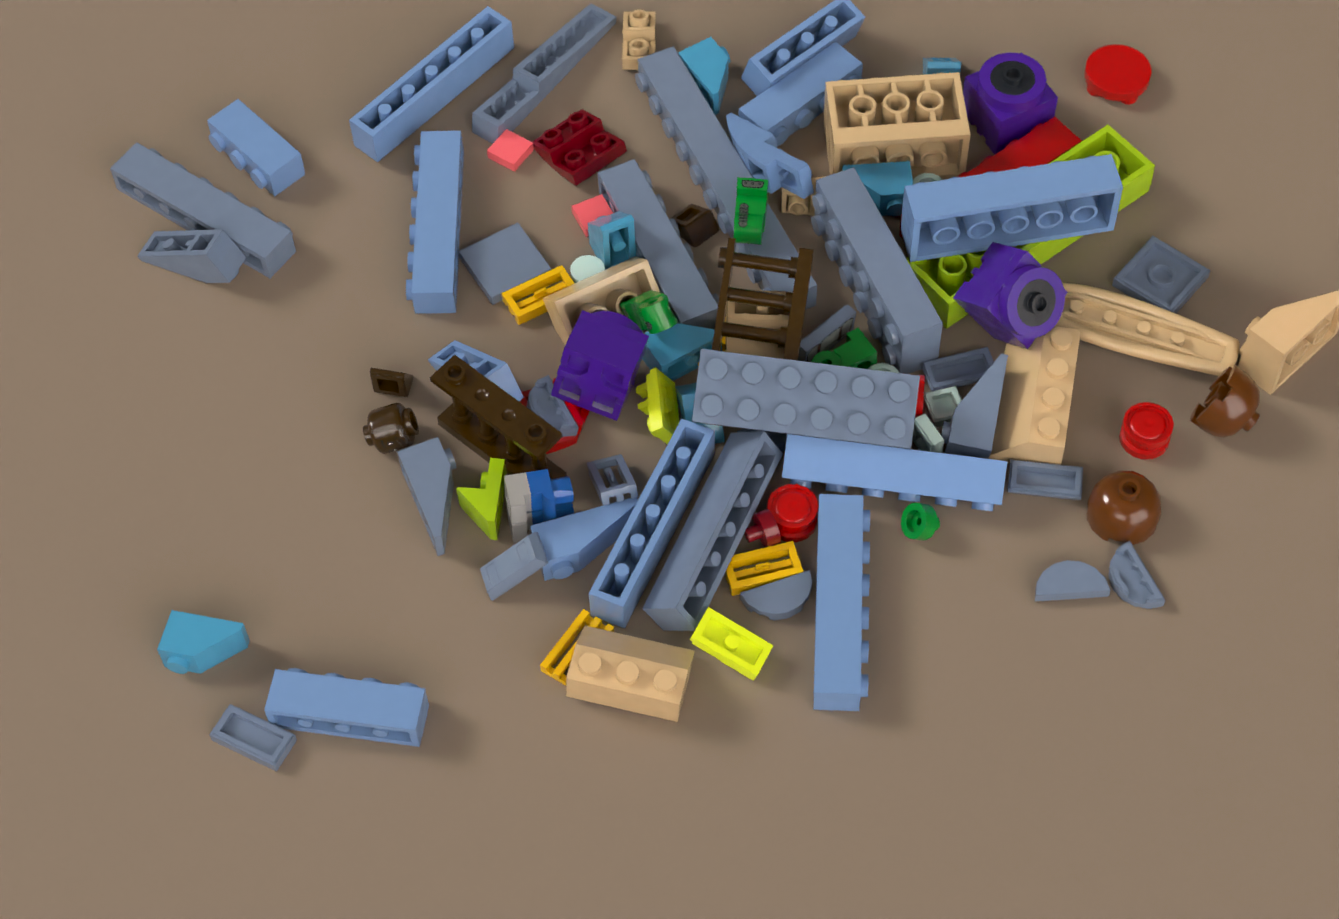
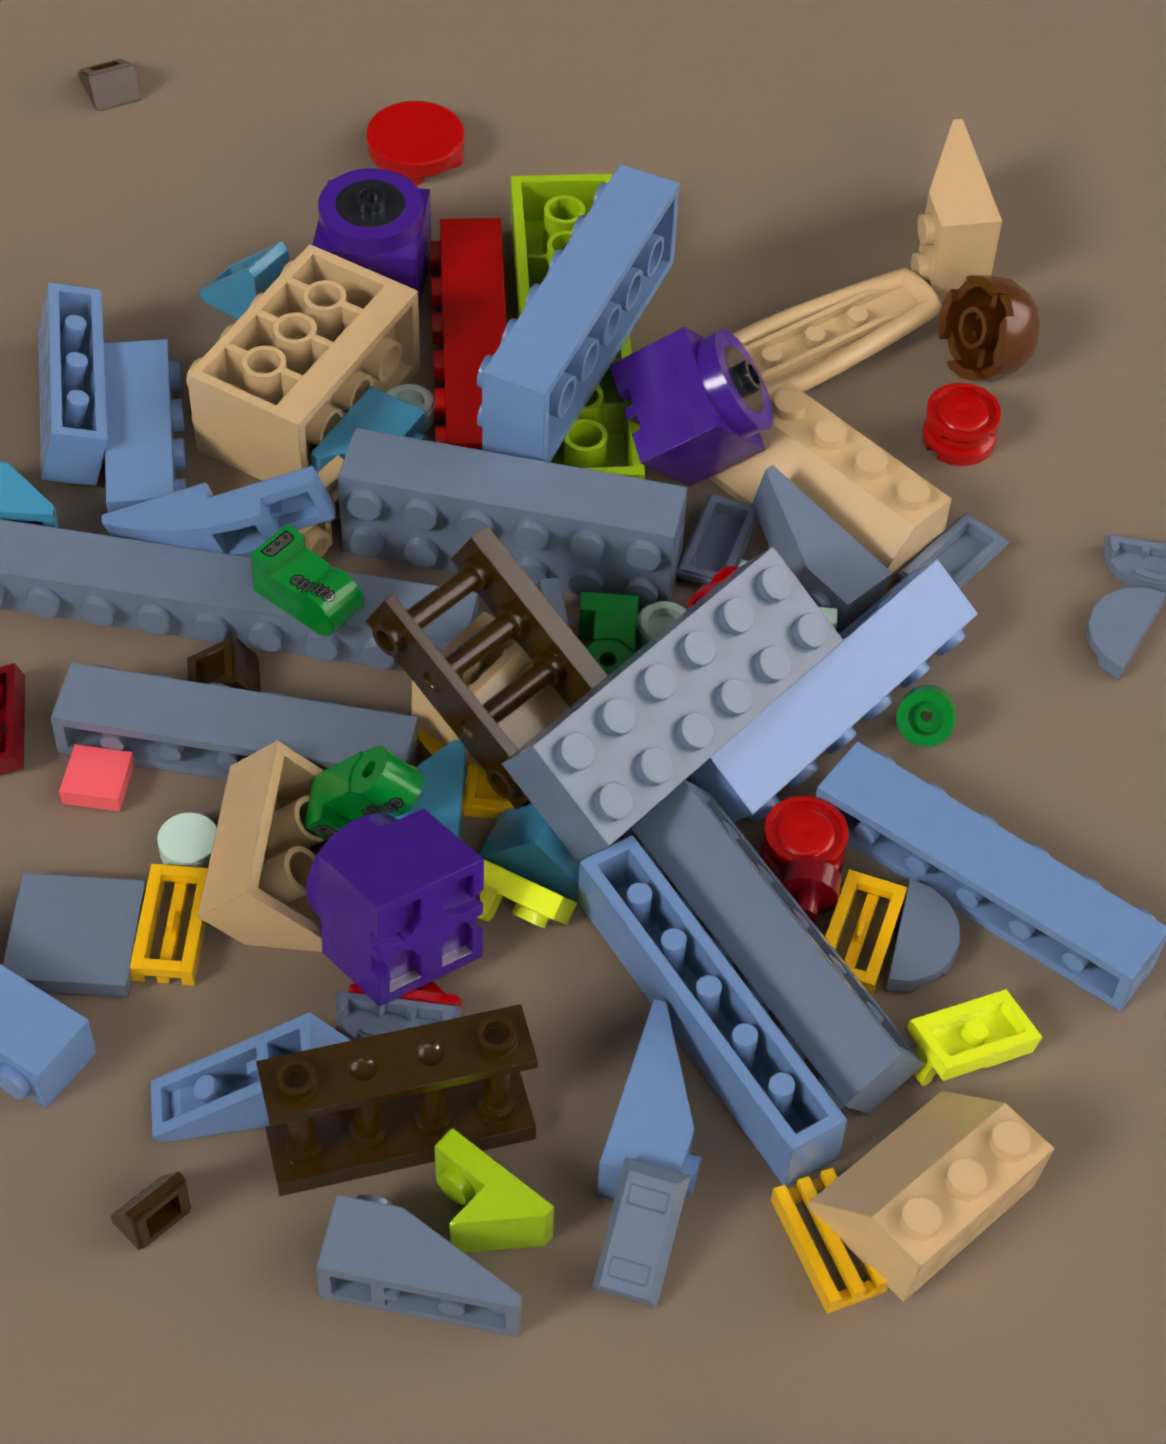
camera: 60 degrees left, 5 degrees down
(391, 428) = (247, 1258): dark brown head -> none
(535, 499) = (564, 1133): hips -> none
(613, 238) = (173, 768): dark azure slope -> none
(615, 489) = (587, 1026): sand blue tile -> none
(1124, 507) = (1055, 509): reddish brown cylinder -> none
(1161, 276) = (741, 282): sand blue tile -> none

